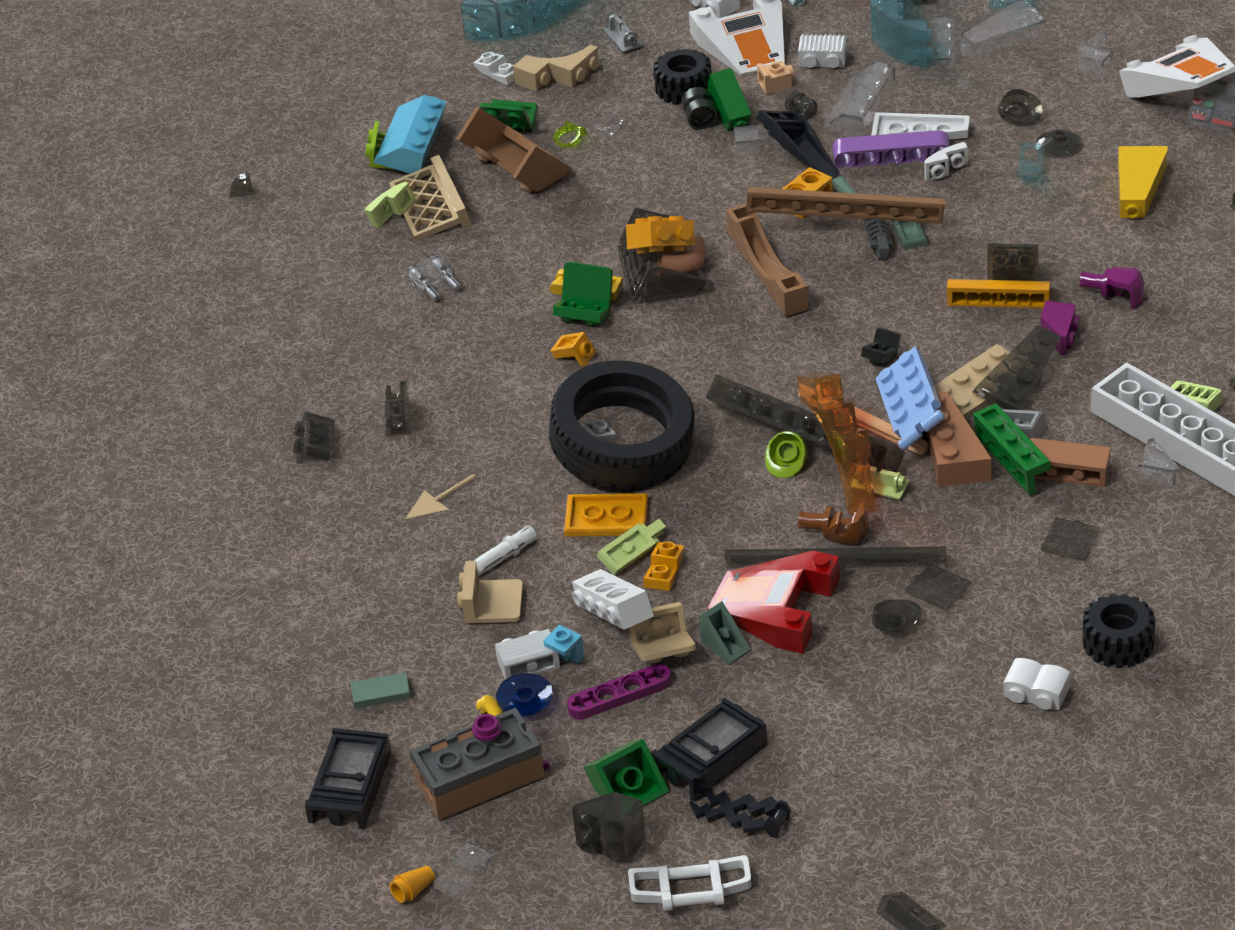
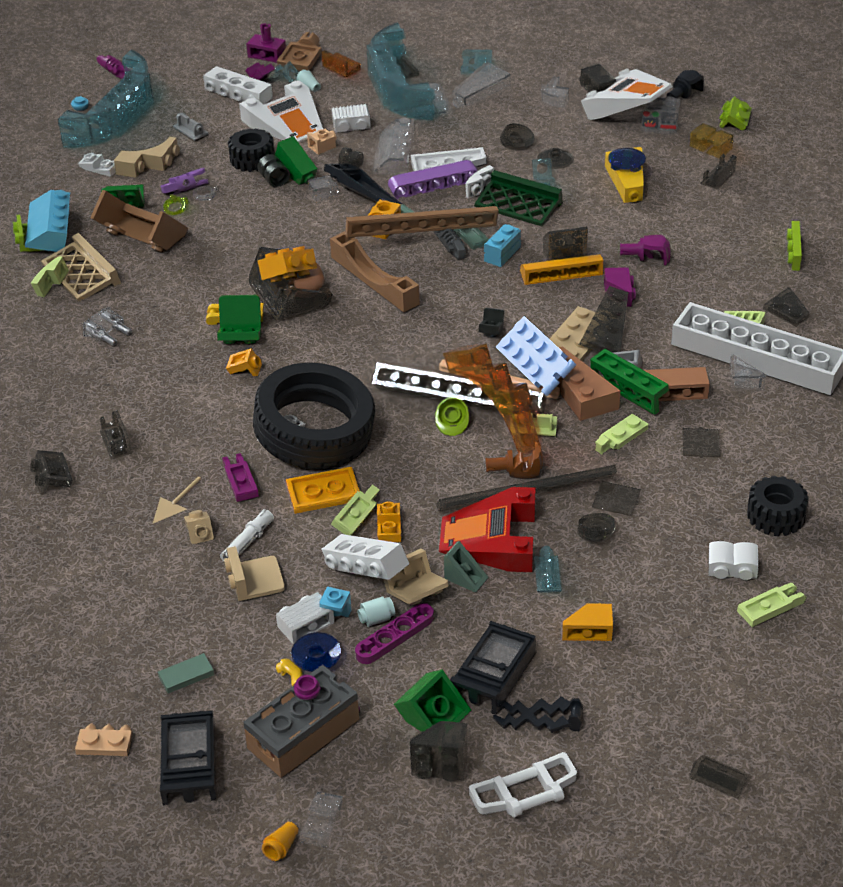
camera: 20 degrees left, 0 degrees up
(271, 745) = (105, 741): none -> light nougat plate
(451, 531) = (199, 526): none -> tan bracket
(517, 485) = (240, 478): none -> magenta hinge
(577, 107) = (176, 183): none -> medium lavender hinge
(607, 663) = (376, 611): none -> light aqua brick
(818, 655) = (547, 571): none -> clear light blue hinge
(837, 723) = (589, 623): none -> light orange slope
(937, 250) = (502, 245): none -> medium azure brick
(977, 511) = (621, 433): none -> yellowish green hinge
(998, 181) = (524, 189): none -> dark green fence
(1058, 742) = (770, 604): none -> yellowish green hinge
(1138, 160) = (627, 159): none -> clear blue dish
(1154, 41) = (596, 78): none -> clear smoke brick

